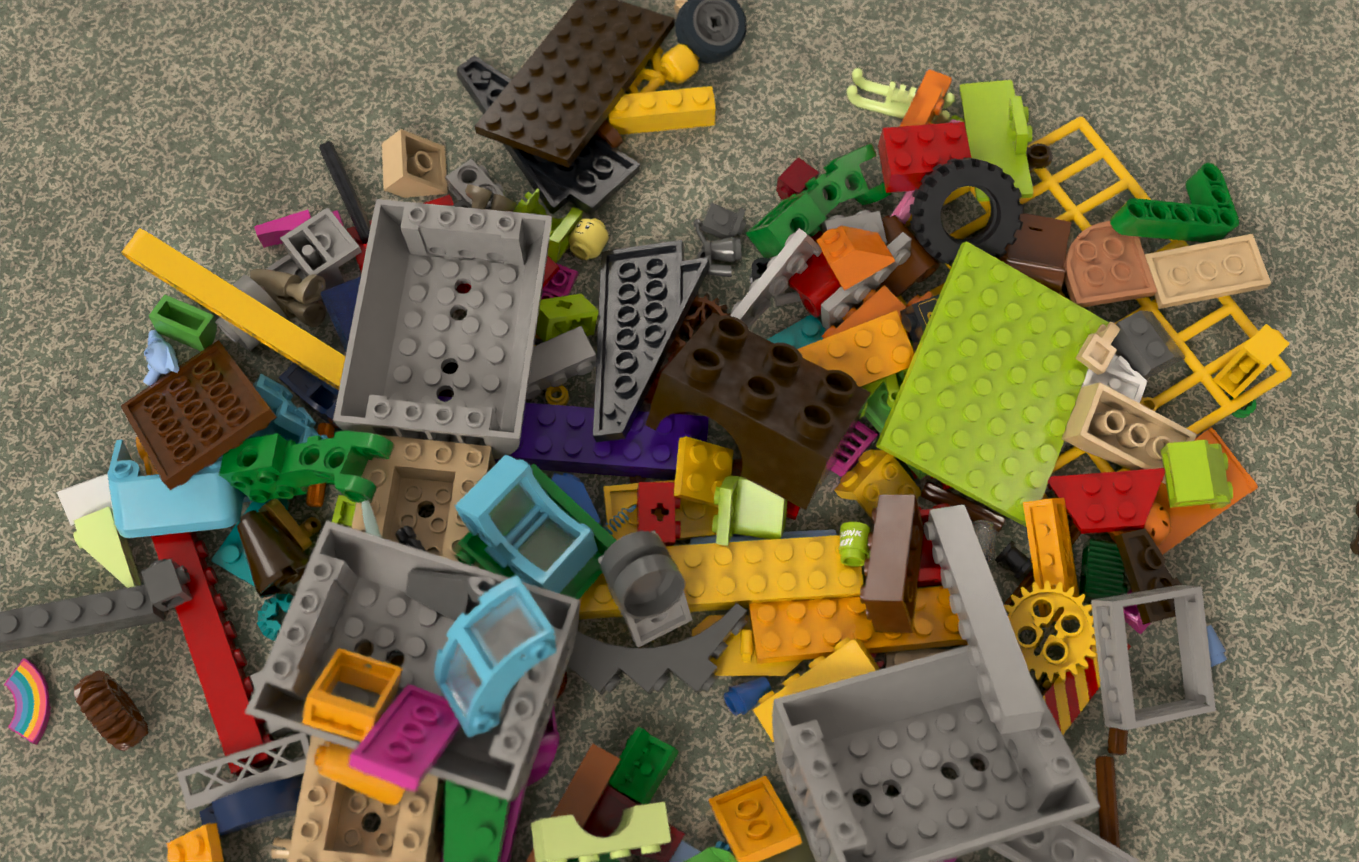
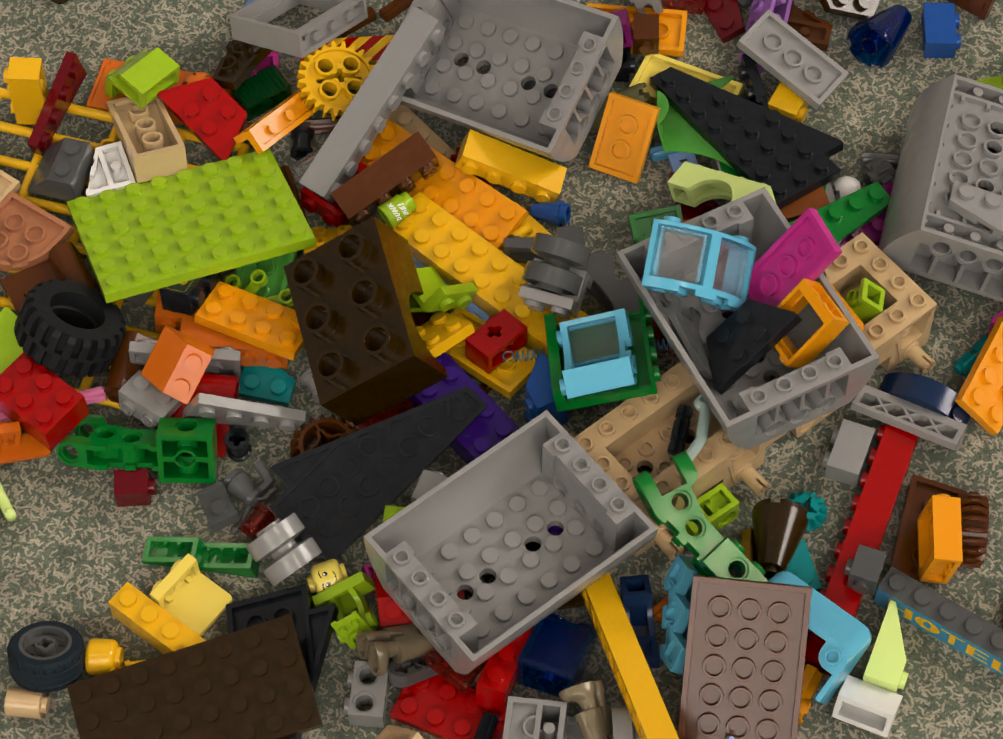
camera: 130 degrees left, 10 degrees down
(123, 667) = (939, 539): none -> light orange window
(170, 693) = (906, 544): none -> reddish brown wing
(365, 817) = (866, 300): none -> lime brick
(398, 640) = (745, 340): none -> black wing
(634, 217) = (279, 543): none -> light grey wheel
(669, 149) = (190, 595): none -> light yellow bracket
(684, 231) = (256, 521): none -> clear red bush
(702, 182) = (211, 557): none -> green slope
(1097, 348) = (102, 183): tan plate -> none
(1231, 397) = (63, 90): none -> dark red wing

